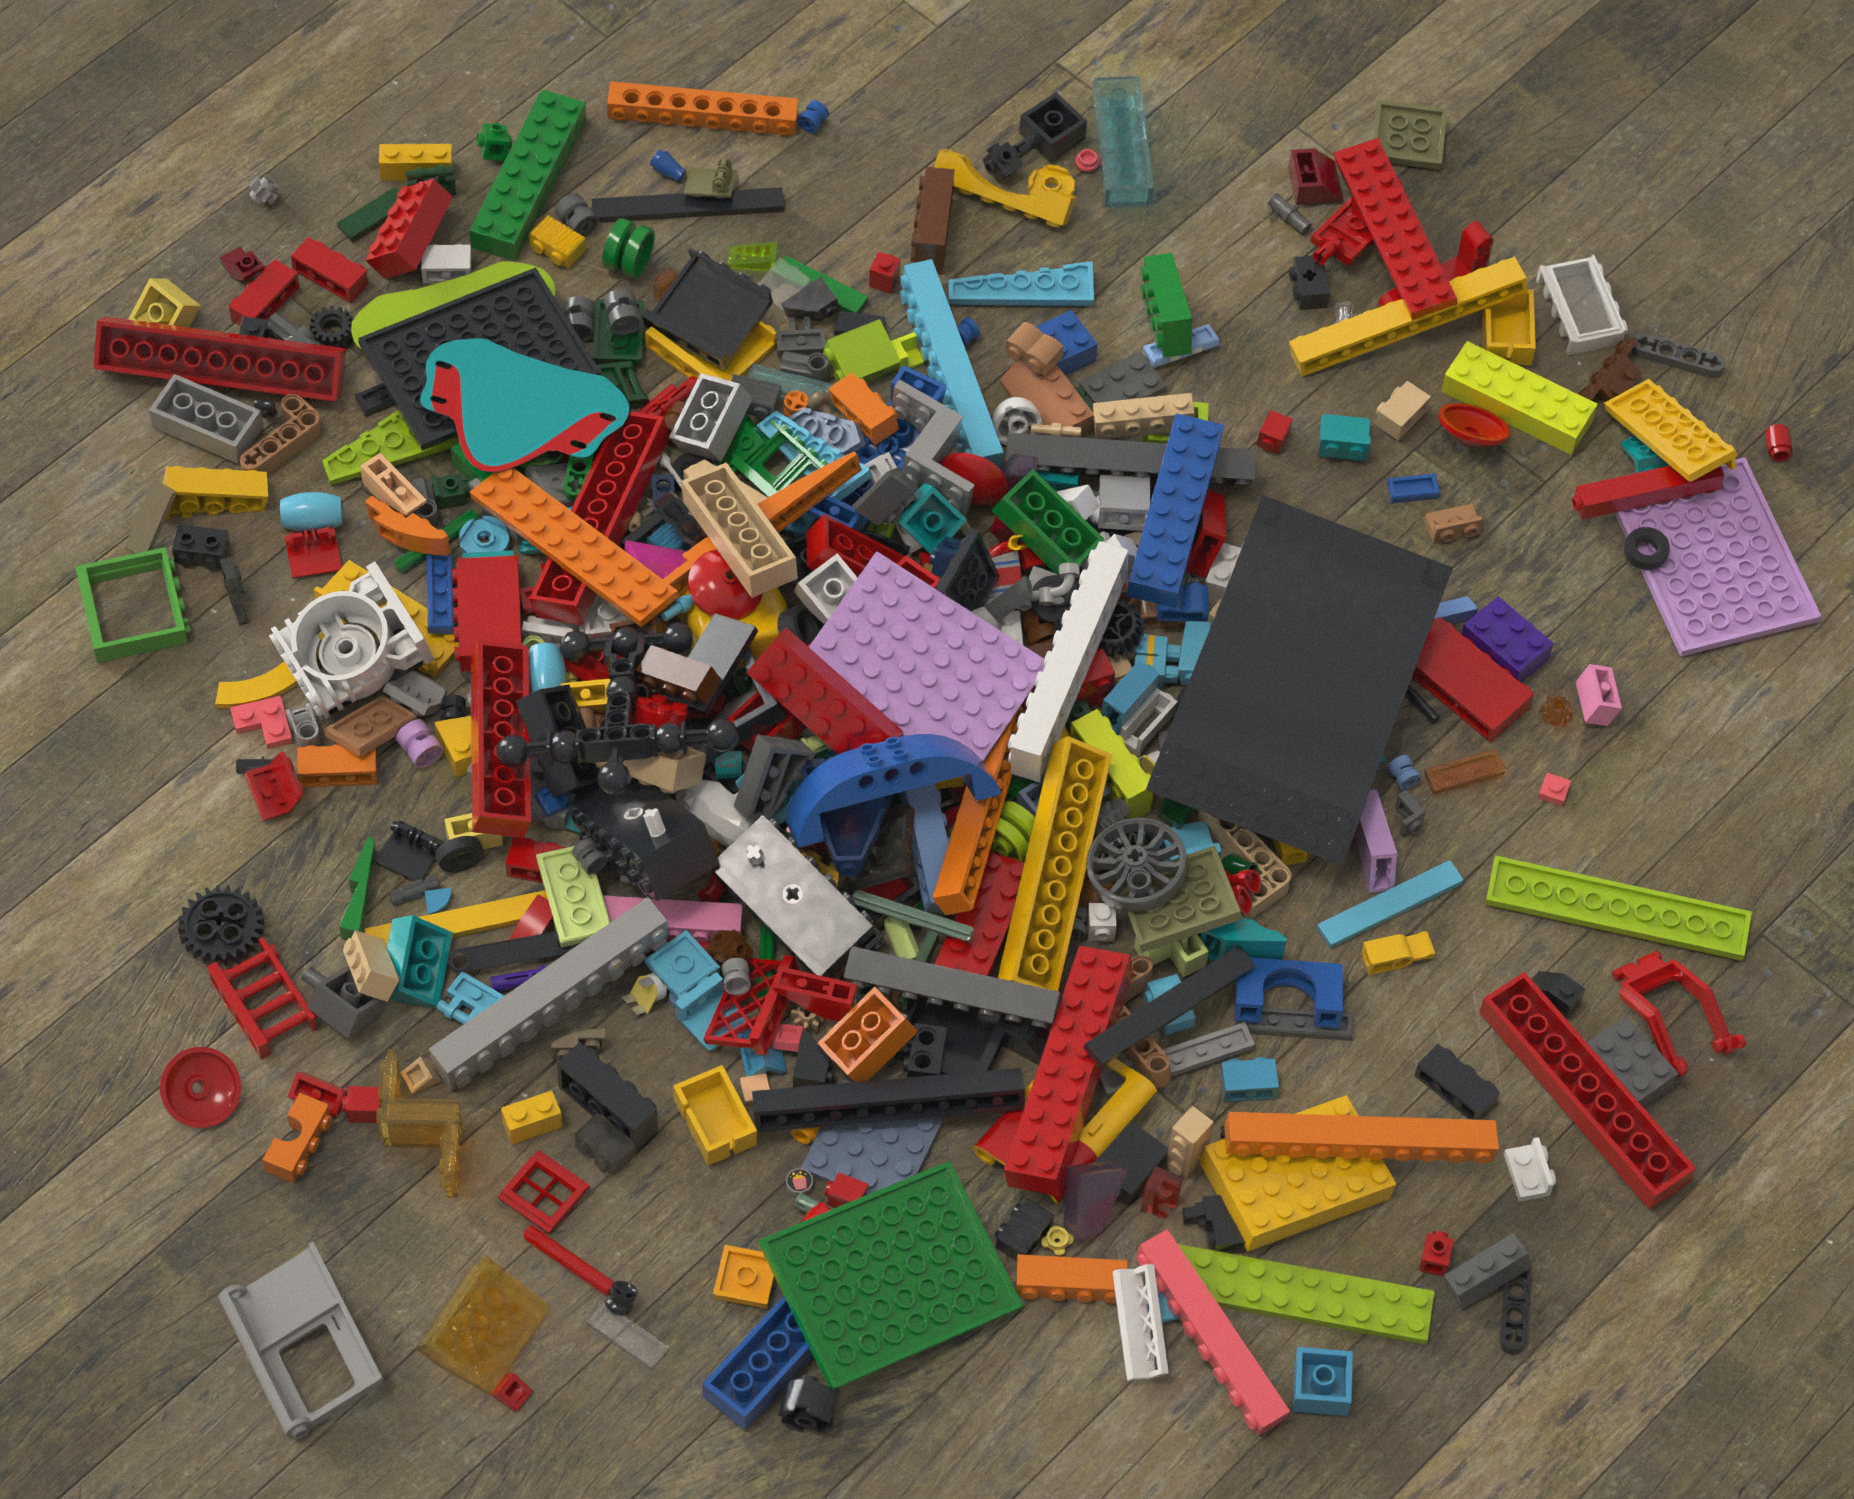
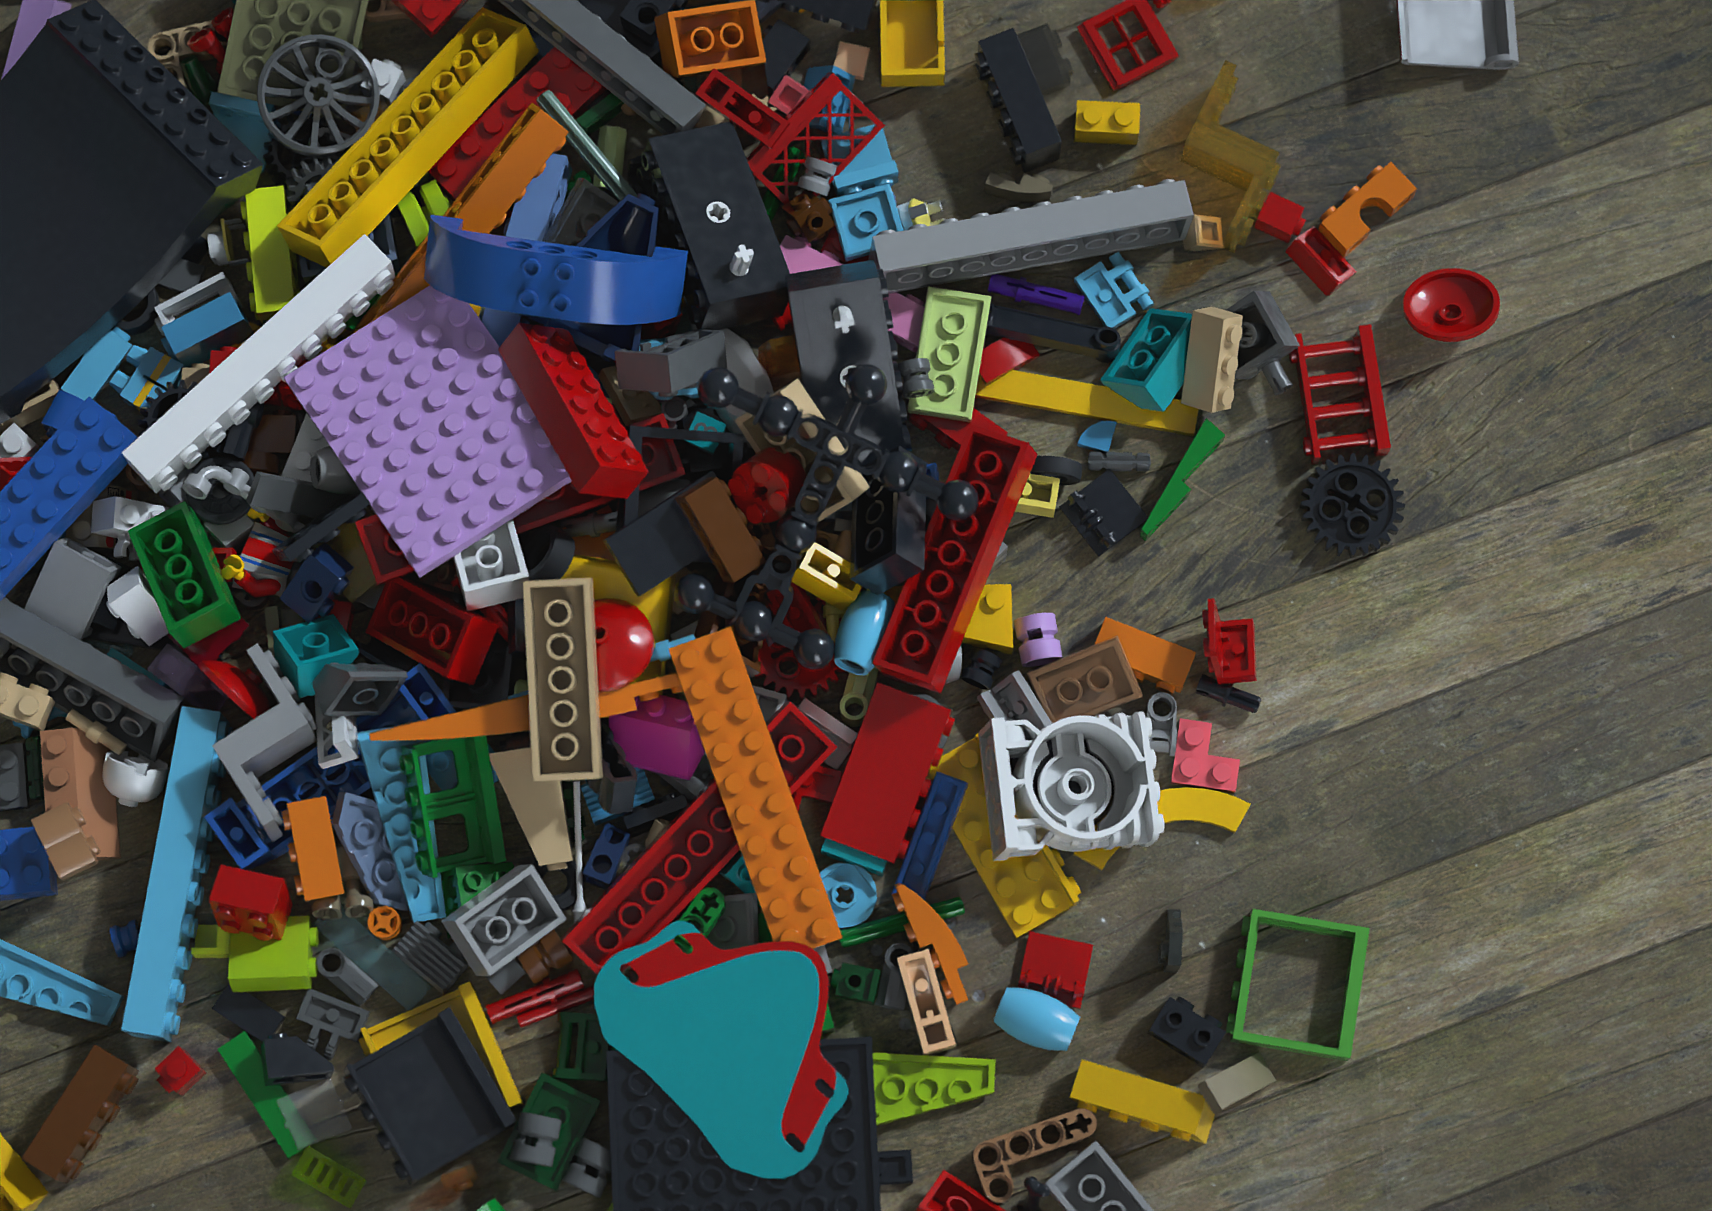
camera: 150 degrees left, 20 degrees up
(884, 357) = (250, 903): none -> red brick

